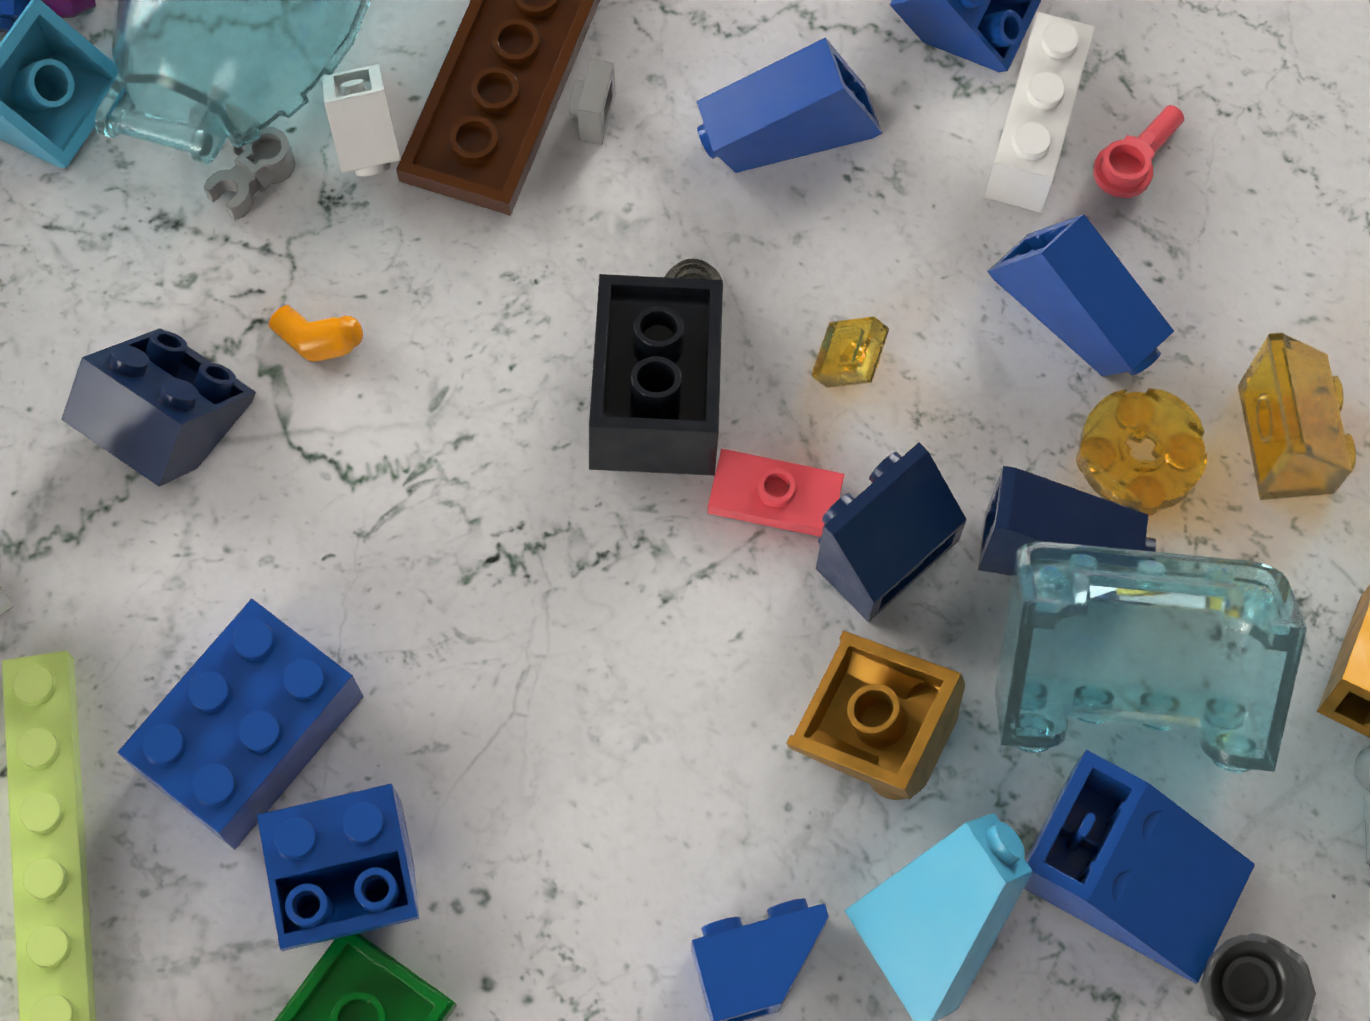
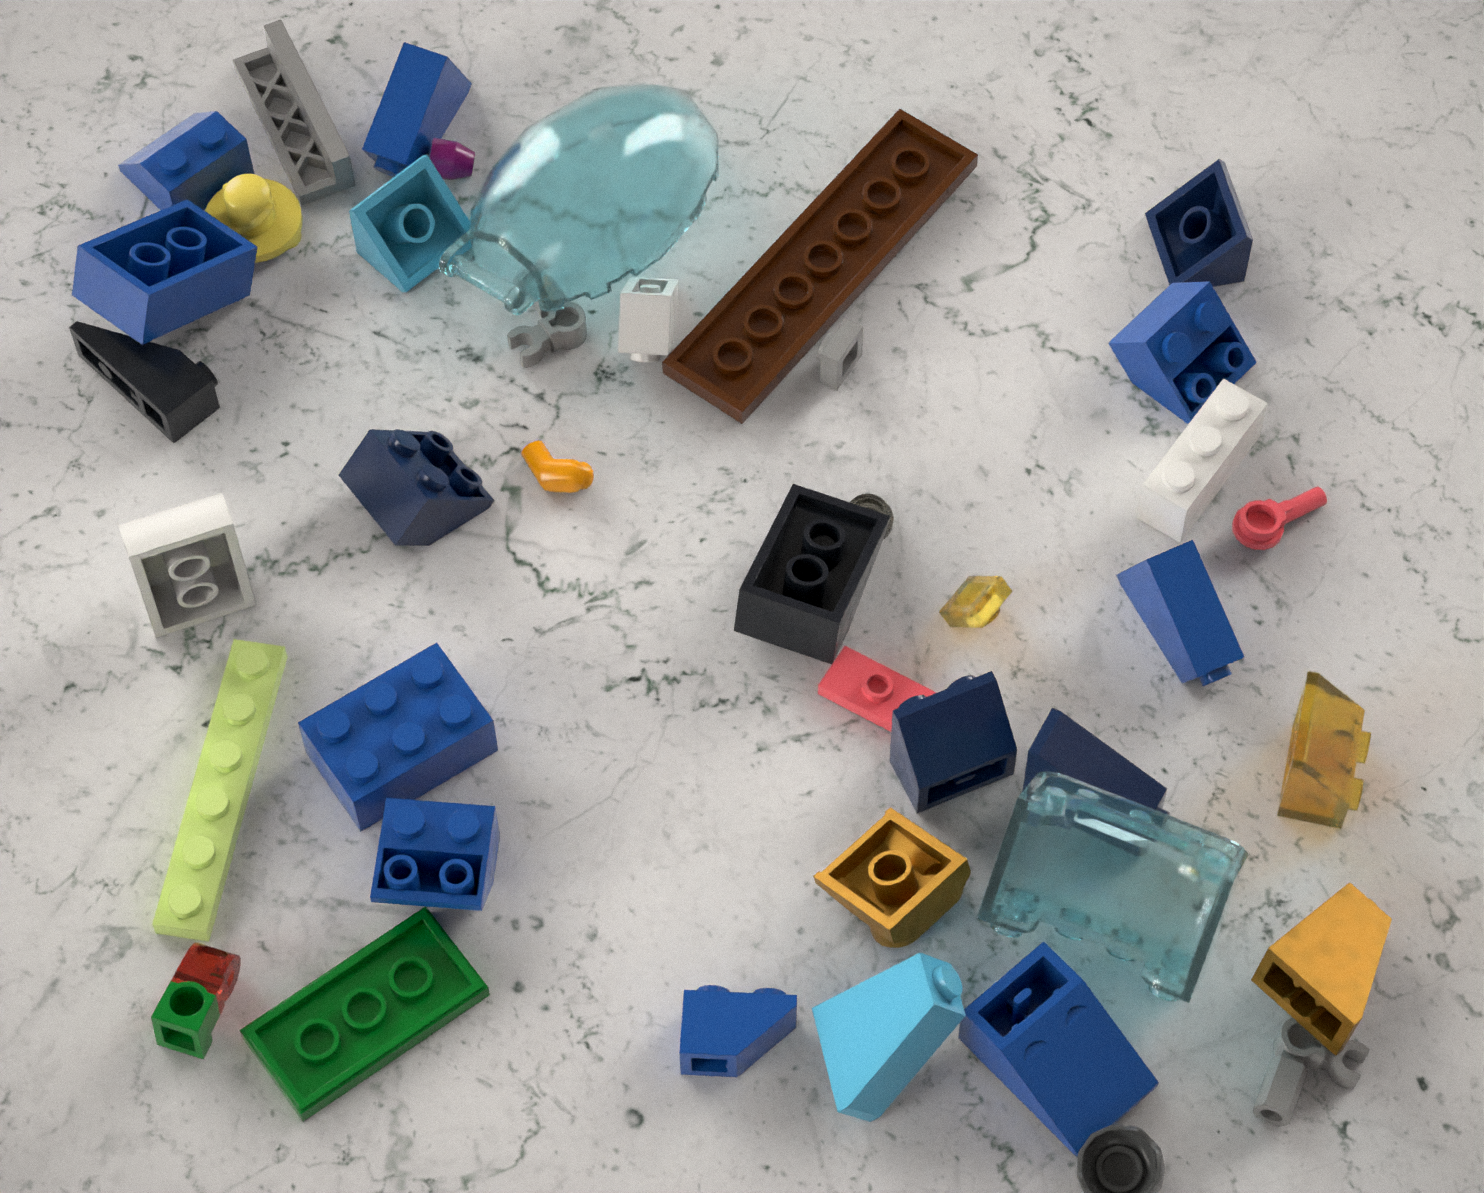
camera: 20 degrees right, 10 degrees down
(788, 111) = (995, 402): blue slope -> none
(1137, 416) = (1181, 772): clear yellow plate -> none

